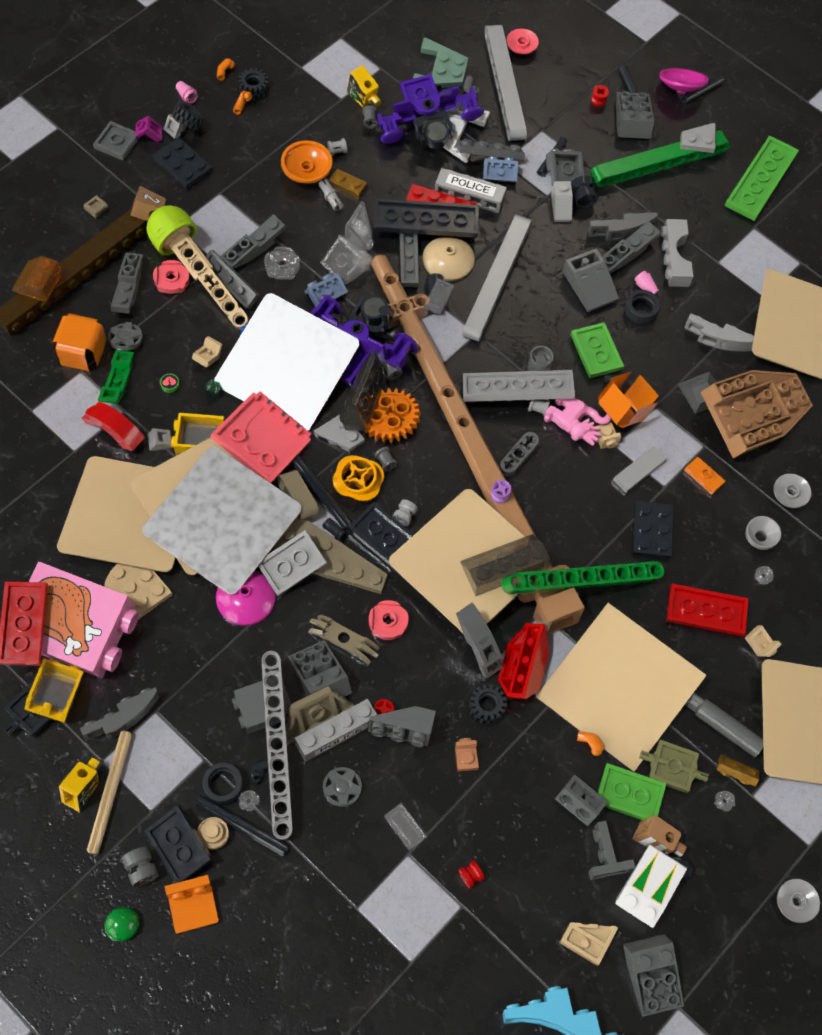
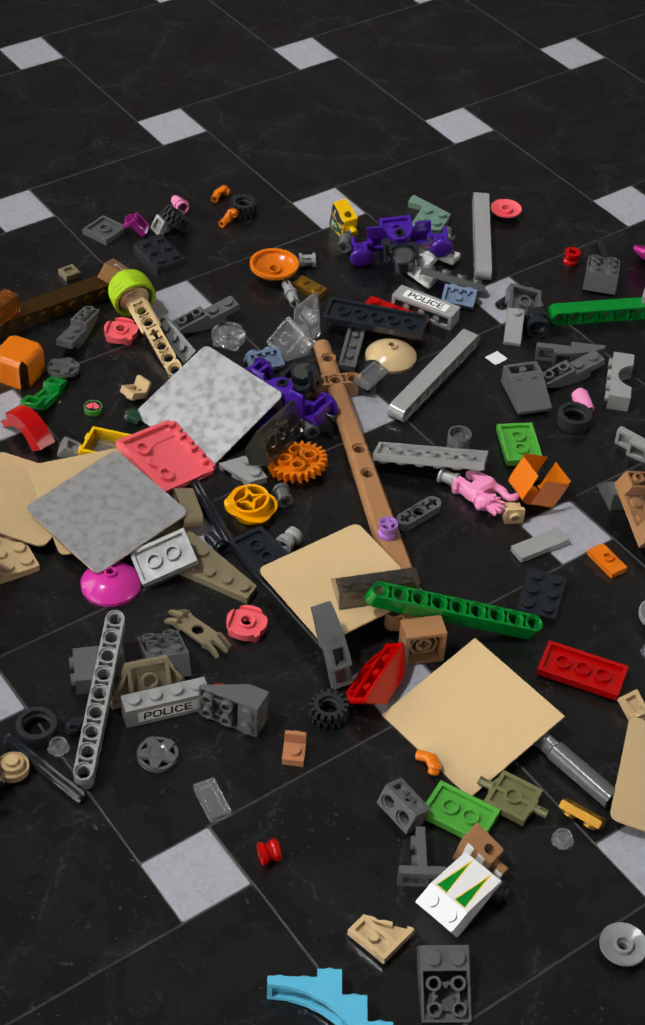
camera: 15 degrees right, 20 degrees down
(551, 241) = (496, 358): none -> white sticker

